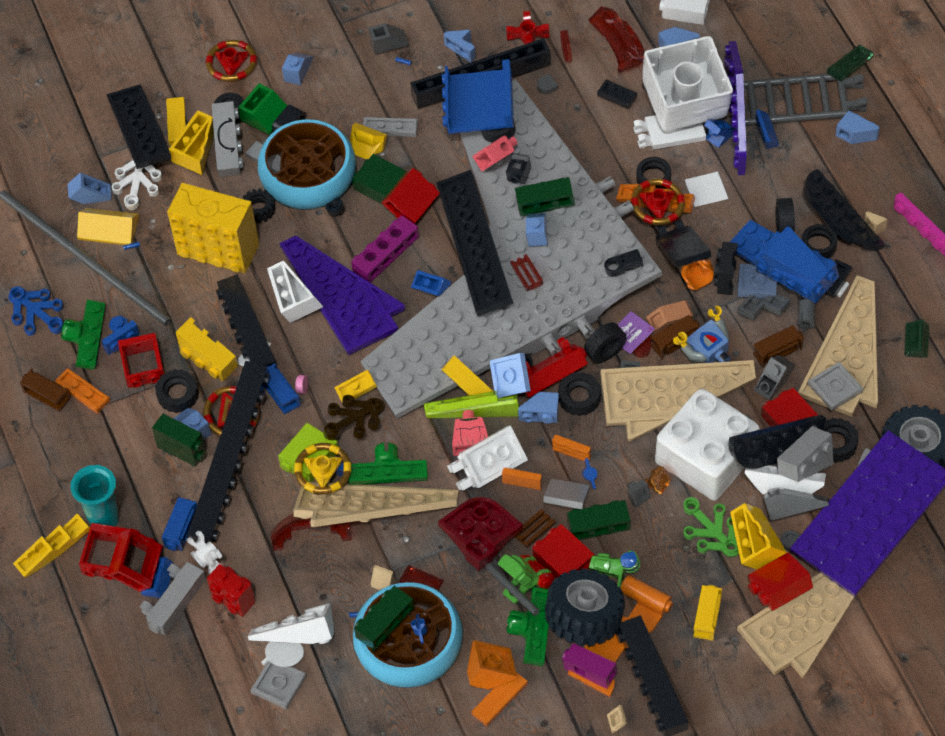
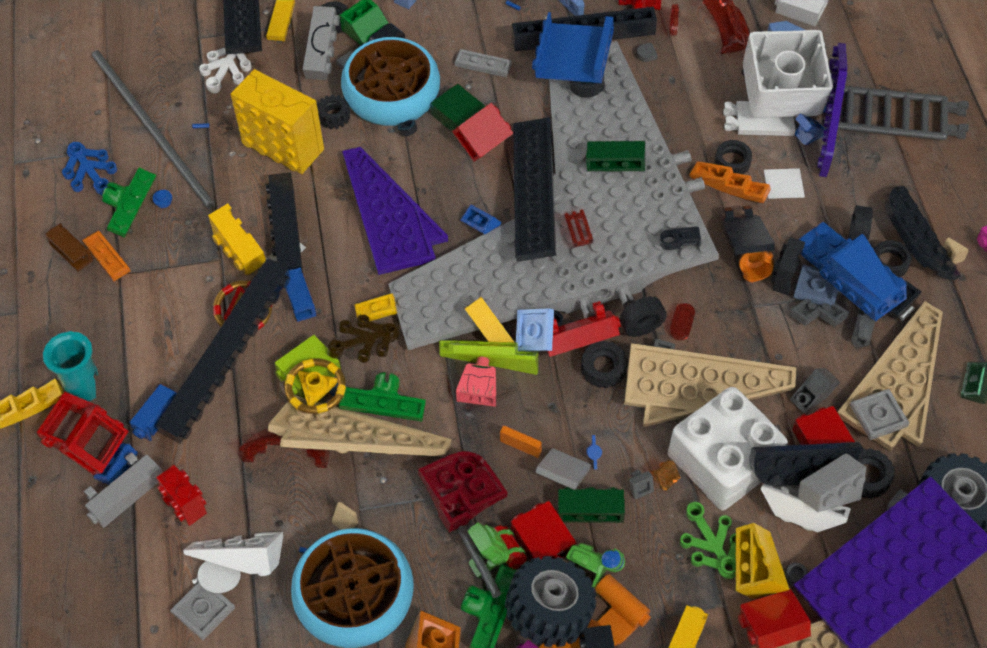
camera: 10 degrees right, 0 degrees up
(88, 189) = (176, 65): medium blue slope -> none
(107, 226) = (183, 102): yellow slope -> none
(110, 343) = (159, 211): blue plate -> none
(139, 345) = (164, 222): red window -> none
(177, 377) = (192, 262): black tyre -> none
(179, 440) = (180, 325): dark green brick -> none
(194, 143) = (288, 41): yellow wedge -> none
(194, 420) = (201, 314): medium blue slope -> none
(206, 552) = (168, 449): white pin -> none
(291, 293) = (338, 201): white wedge -> none
(301, 384) = (322, 294): bright pink tile -> none
(367, 141) = (456, 71): yellow slope -> none
(383, 617) = (326, 565): dark green brick -> none
(395, 239) = (444, 177): magenta brick -> none
(415, 575) = (383, 525): clear red tile -> none
(419, 627) = (363, 584): blue piece -> none
(488, 458) = (489, 412): white tile -> none
(495, 152) = (577, 103): coral torso -> none
(518, 168) = (596, 124): black window -> none
(536, 229) = (599, 187): medium blue slope -> none
(540, 408) = (559, 370): medium blue slope -> none
(544, 517) = (517, 491): reddish brown tile -> none
(571, 448) = (581, 420): orange tile -> none
(617, 94) = (714, 74): black plate -> none
(636, 331) = (678, 311): medium lavender sticker -> none
(658, 201) = (731, 184): red piece -> none
(663, 340) = (719, 325): reddish brown window -> none
(668, 315) = (724, 302): nougat slope -> none
(708, 342) = (751, 339): torso -> none
(766, 129) = (858, 136): blue slope -> none
(781, 344) = (827, 356): reddish brown window -> none
(791, 502) = (800, 532): dark grey slope -> none
(850, 62) = (957, 88): clear green tile -> none
(856, 129) = (952, 154): medium blue slope -> none

